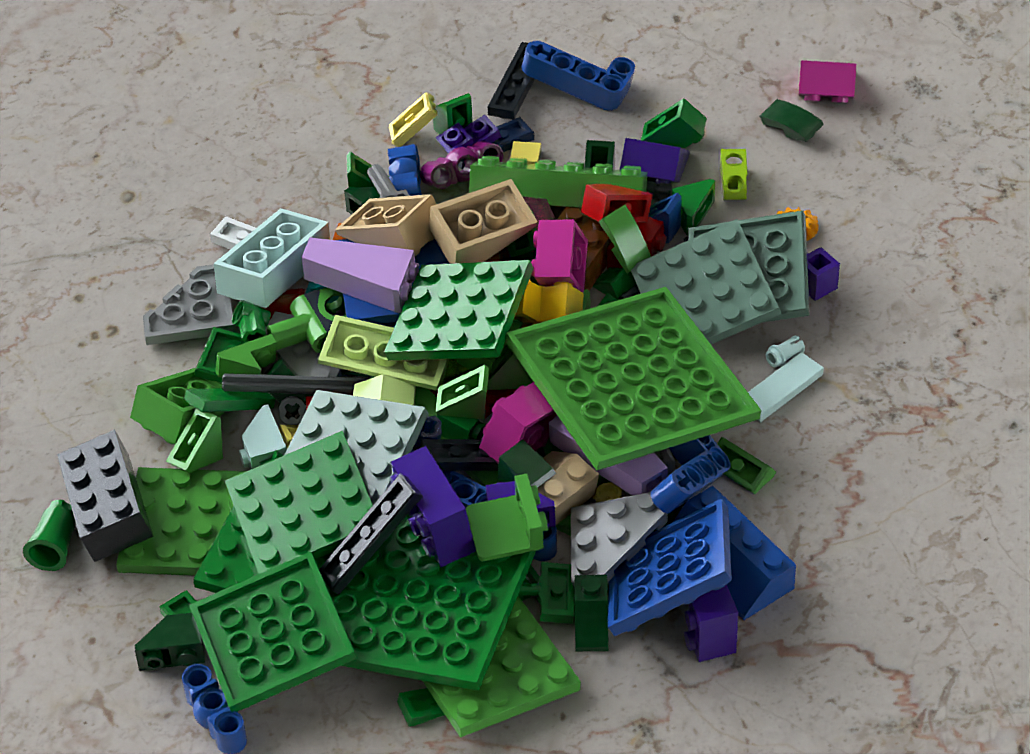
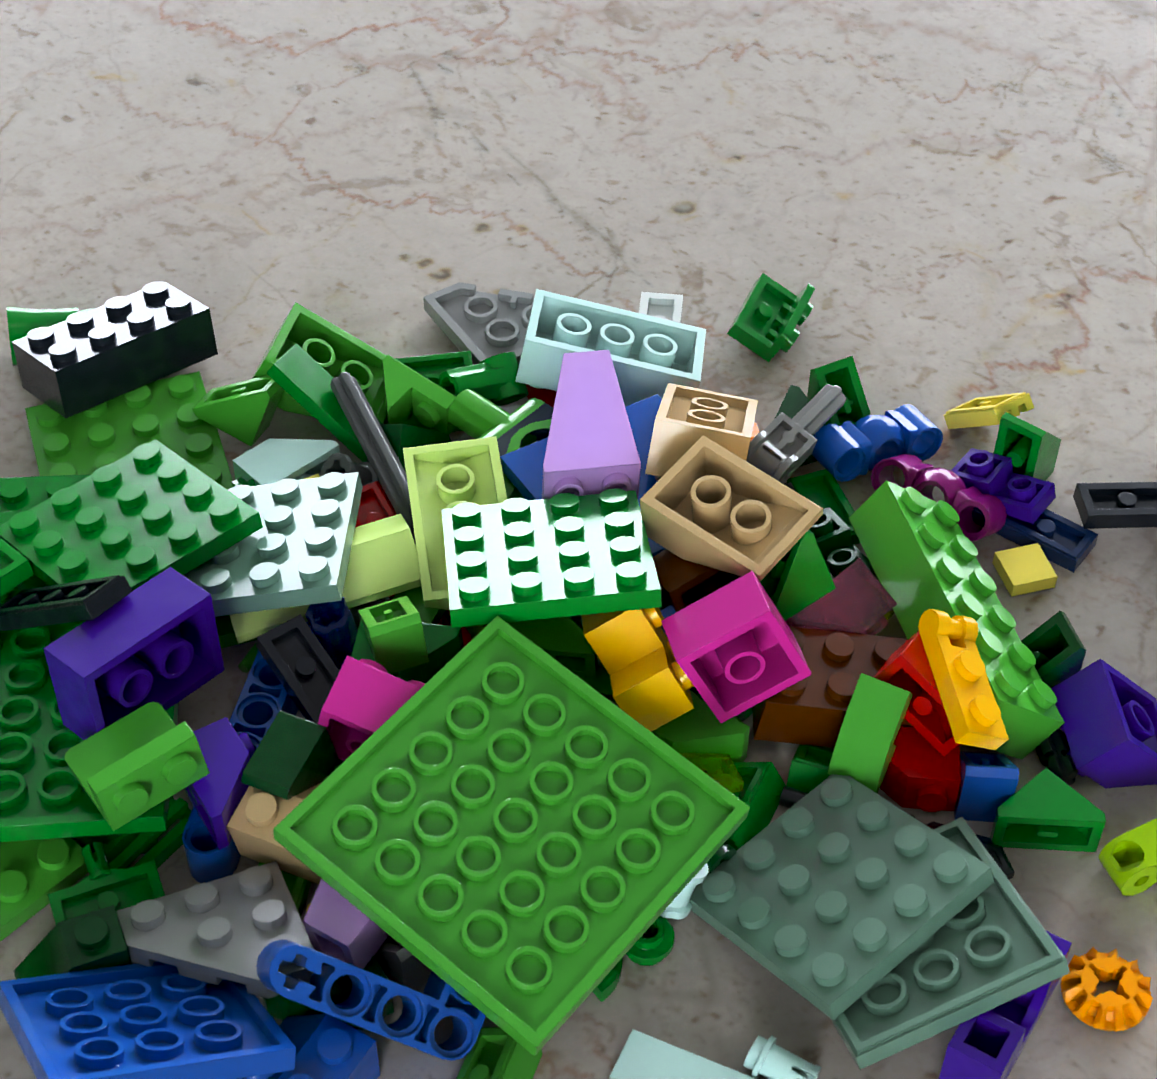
camera: 65 degrees right, 0 degrees up
(270, 183) = (770, 317): none -> green bracket
(625, 182) = (962, 679): none -> yellow plate

